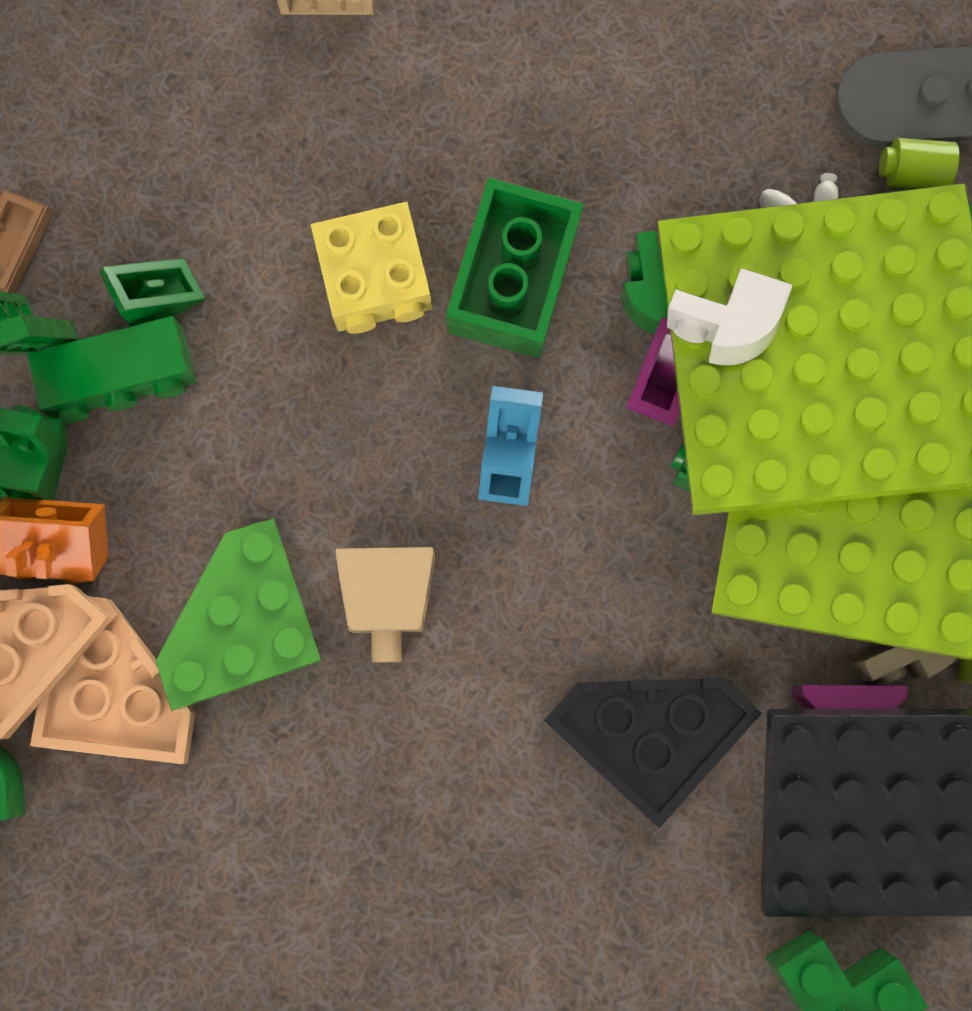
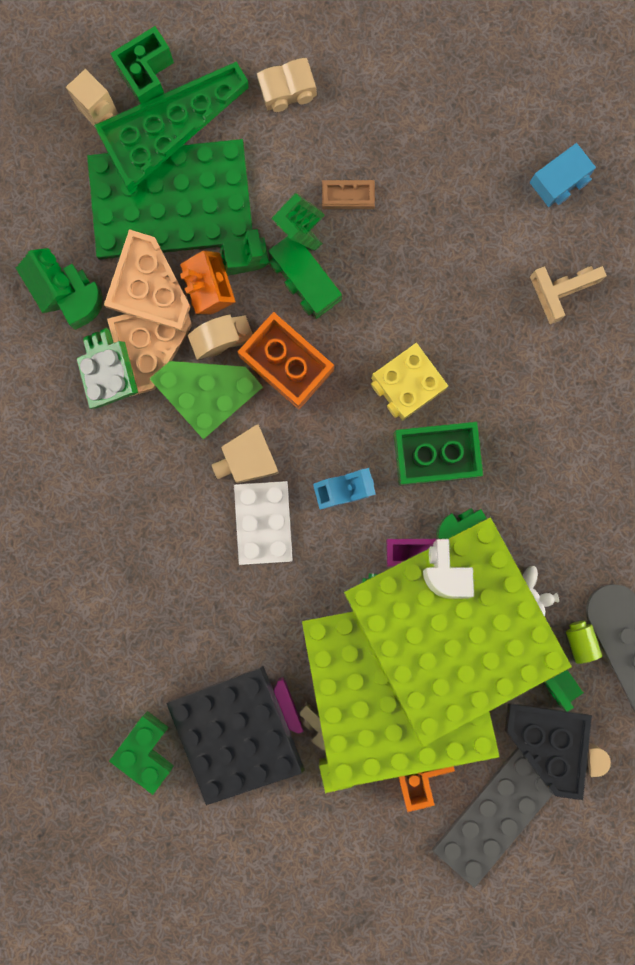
camera: 70 degrees right, 5 degrees up
(121, 785) = (106, 370): none -> piece
(149, 557) = (218, 335): none -> tan brick
(151, 289) = (352, 277): green slope -> none
(244, 457) = (286, 360): none -> orange brick
(511, 613) = (263, 523): none -> white plate
(653, 734) = (231, 616): black plate -> none

